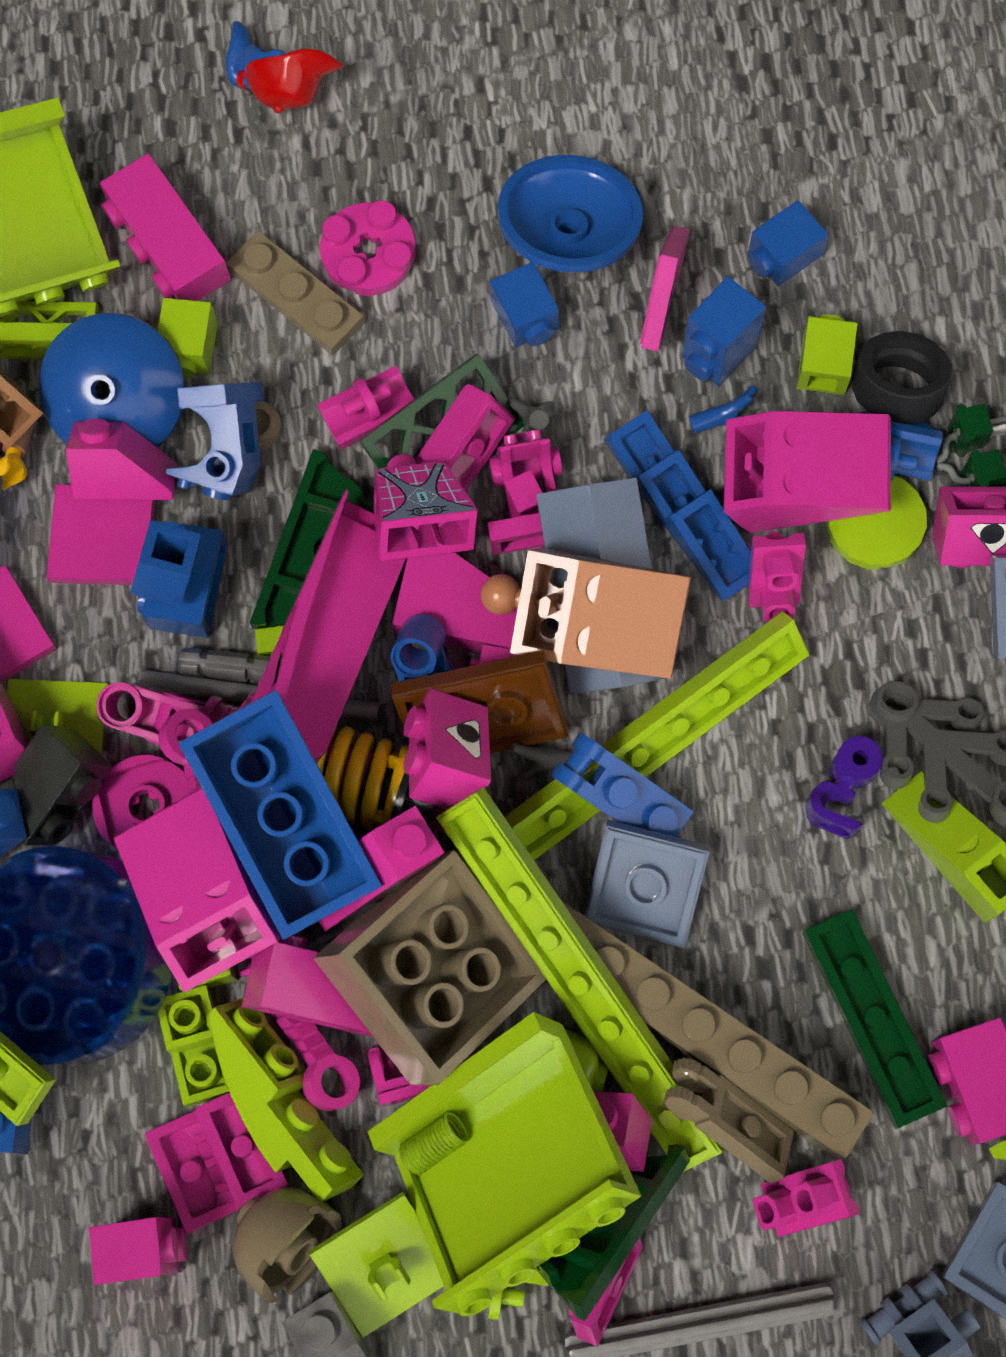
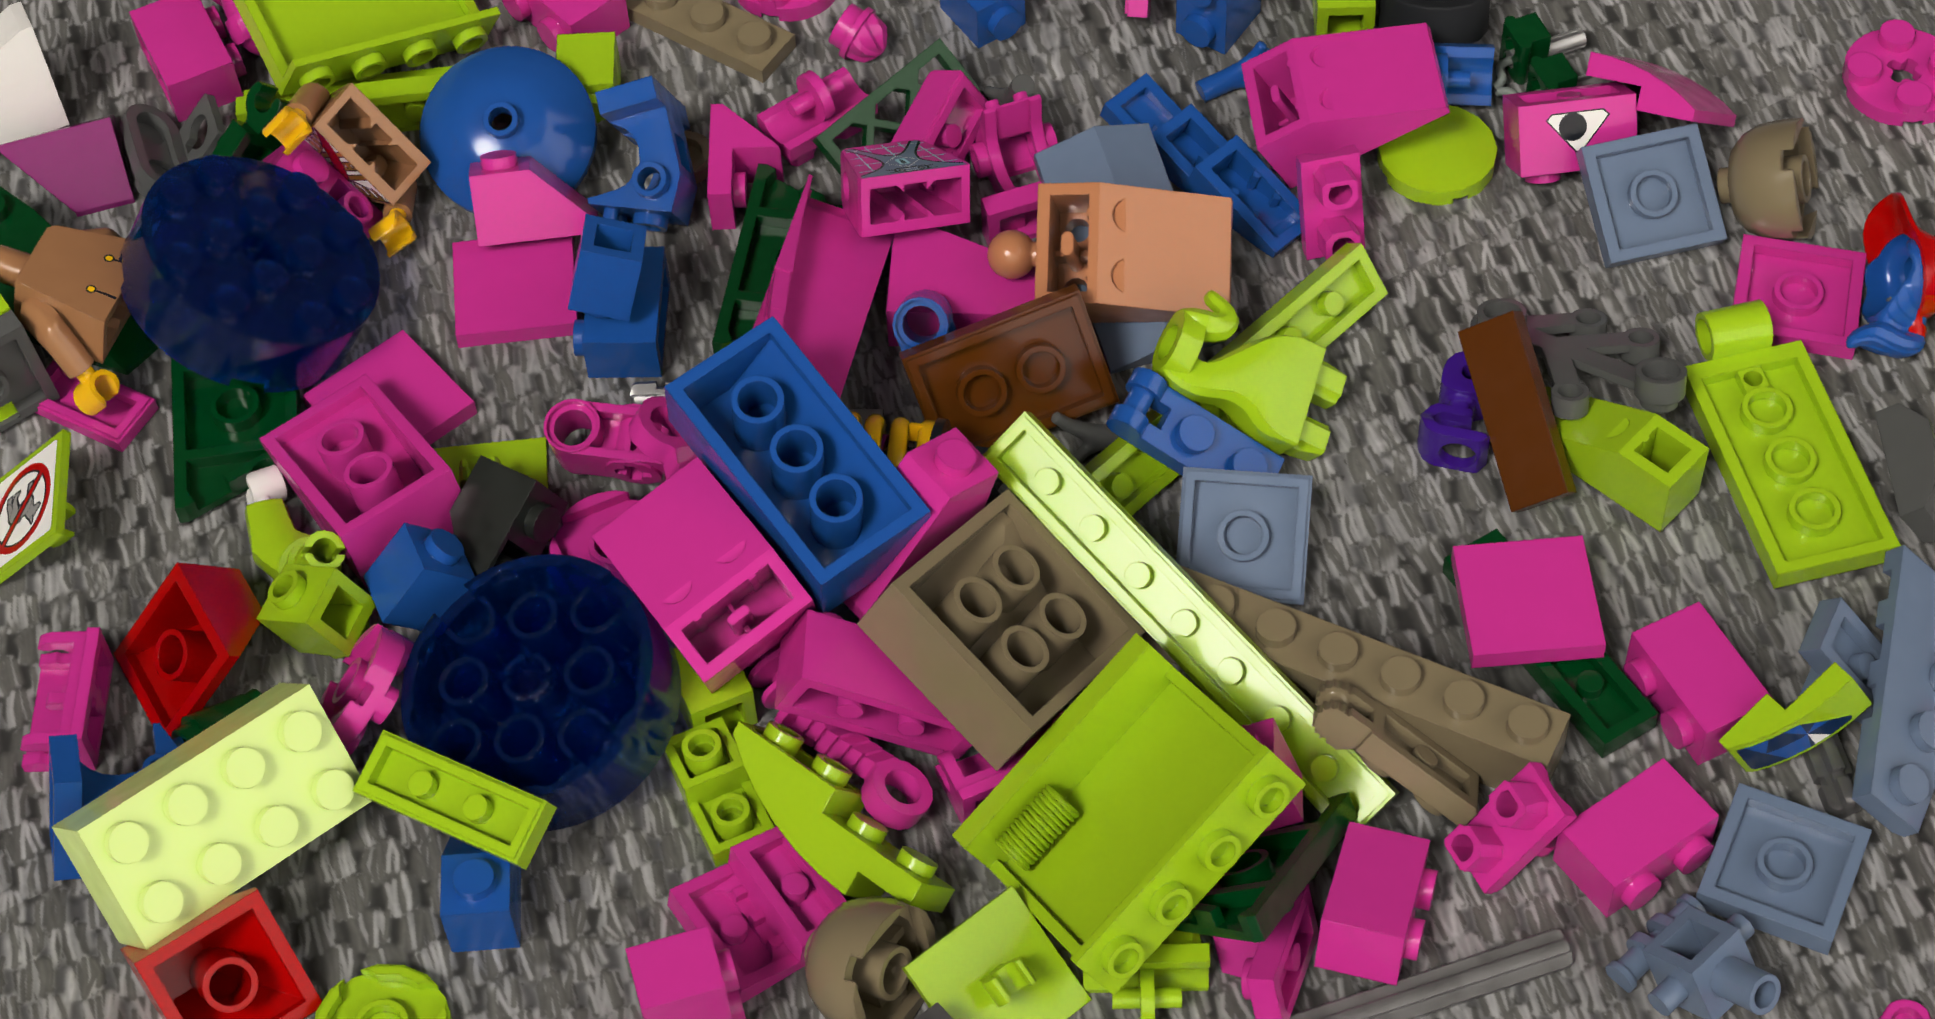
camera: 10 degrees left, 20 degrees down
(292, 435) = (733, 162): none -> dark pink slope
(417, 326) = (859, 34): none -> dark pink plate
(447, 749) = (976, 394): dark pink brick -> none
(523, 491) = (1017, 164): dark pink window -> none
(683, 747) = (1259, 385): none -> lime hips
(688, 1248) = (1374, 902): none -> dark pink brick
(862, 989) = (1527, 602): none -> dark pink tile
(889, 808) = (1517, 411): none -> reddish brown tile
(907, 1218) = (1637, 839): none -> dark pink brick

